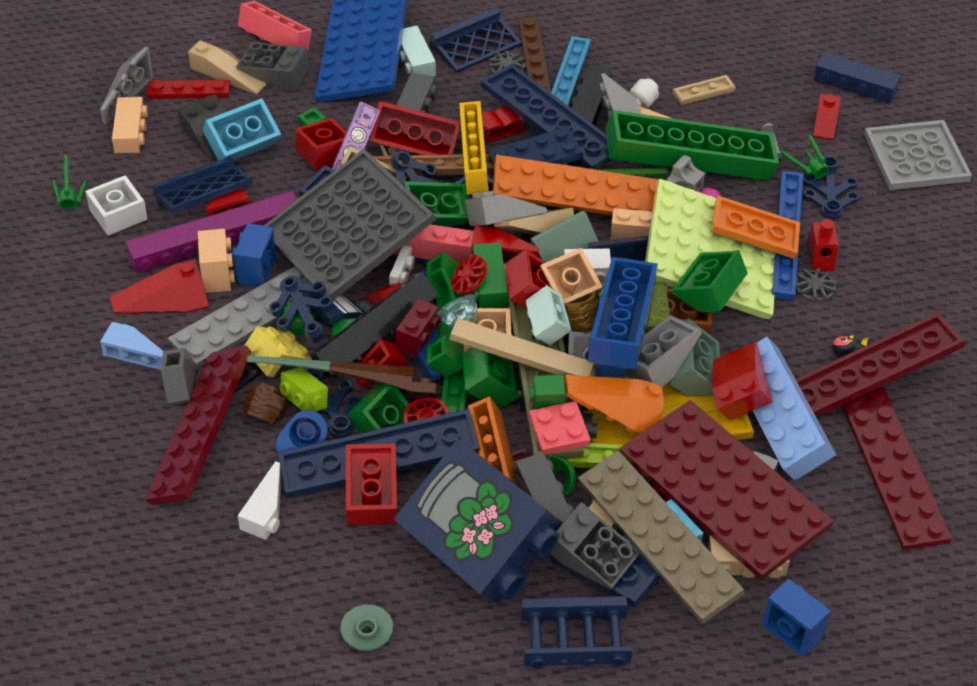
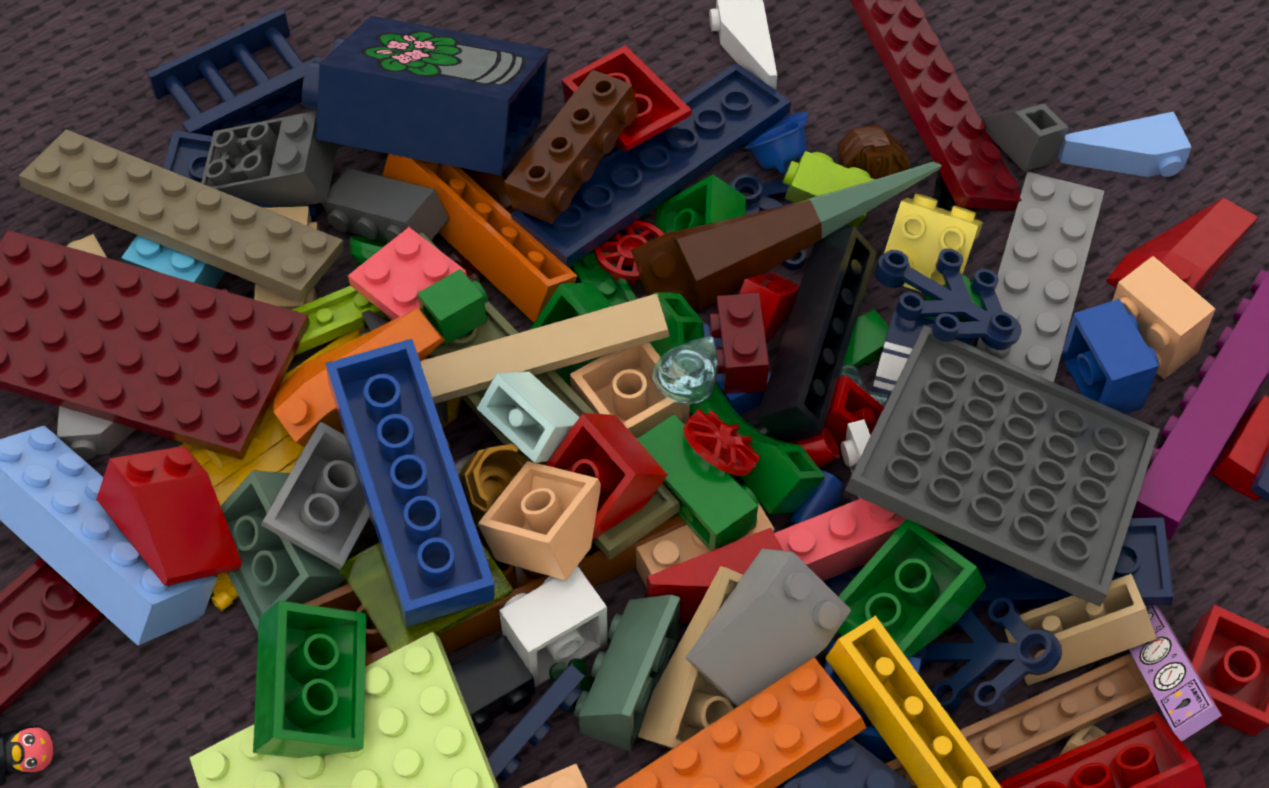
camera: 150 degrees right, 10 degrees up
(422, 448) = (572, 146): none -> reddish brown brick

